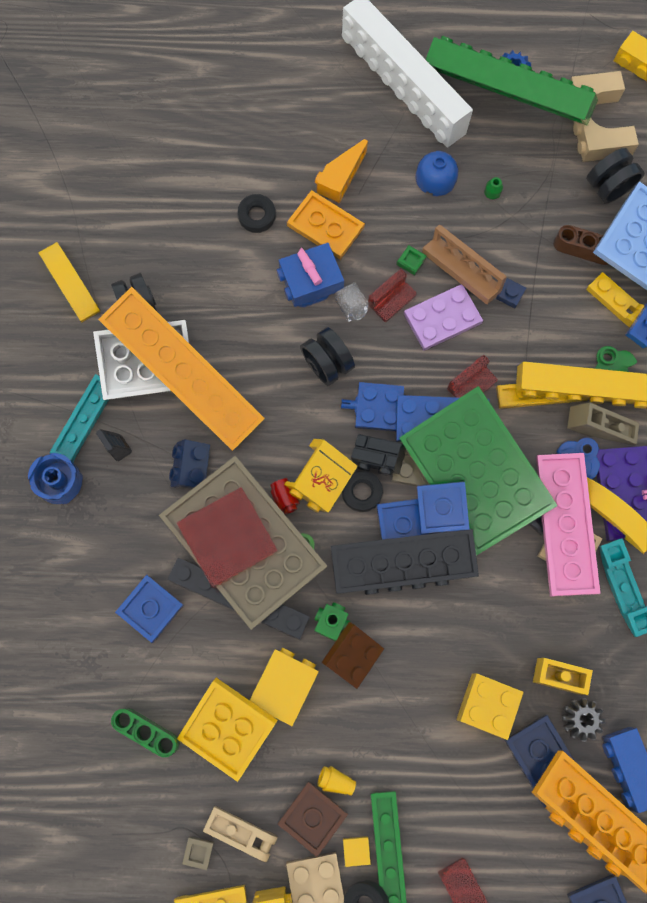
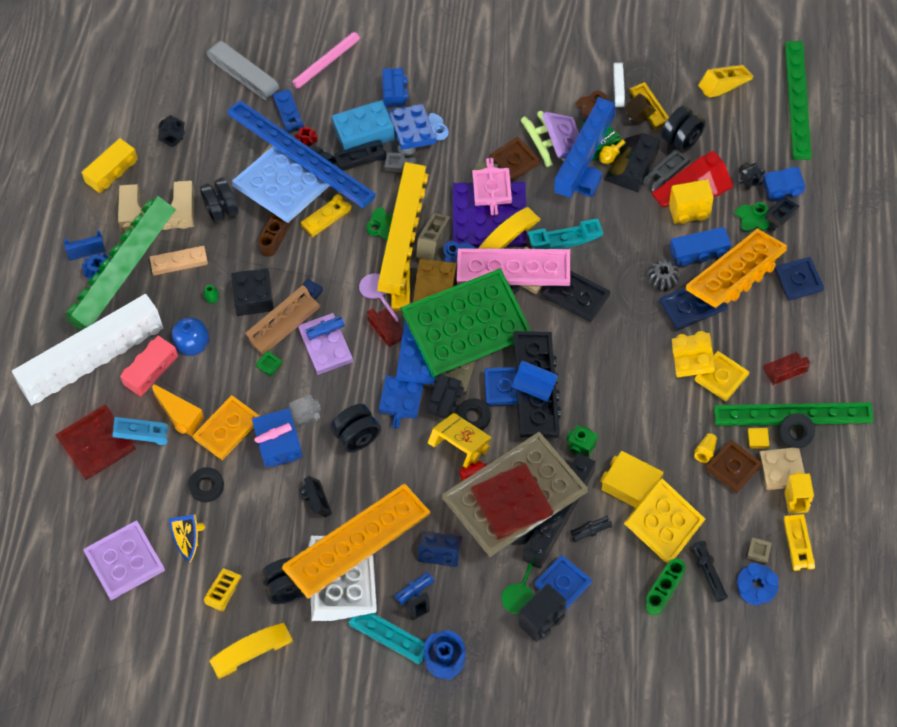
camera: 80 degrees left, 15 degrees down
(100, 583) = (542, 613): none -> black brick
(129, 234) = (221, 604): none -> yellow slope
(136, 557) = (517, 594): none -> green piece
(140, 441) = (414, 588): none -> blue pin
(140, 854) = (762, 594): none -> blue plate
(165, 145) = (124, 560): none -> lavender plate
(179, 783) = (706, 562): none -> black pin
(193, 201) = (185, 534): none -> shield
(220, 639) = (591, 528): none -> black pin
(239, 833) = (744, 520): tan plate -> none
(243, 327) = (314, 492): none -> black hinge
(299, 99) = (91, 442): none -> clear red plate
(312, 136) = (140, 430): none -> dark azure plate
(352, 655) = (609, 426): reddish brown plate -> none
(391, 296) = (301, 380): clear red panel -> none
(394, 136) = (149, 365): none -> coral brick
(399, 557) = (534, 381): none -> blue panel
(441, 801) = (725, 379): none -> yellow plate
(443, 507) = (495, 350): blue plate -> none
(457, 310) = (325, 327): none -> blue pin
(466, 762) = (693, 354): none -> yellow plate
(490, 706) = (651, 335): yellow brick -> none
(499, 229) = (252, 292): none -> black brick
(520, 355) = (368, 288): none -> lavender piece
(535, 150) = (178, 260): none -> light nougat plate
(535, 429) = (434, 277): none -> pearl gold slope
(536, 613) = (581, 297): none -> black plate
(539, 52) = (84, 247): none -> blue hinge
(562, 676) = (631, 283): yellow brick -> none

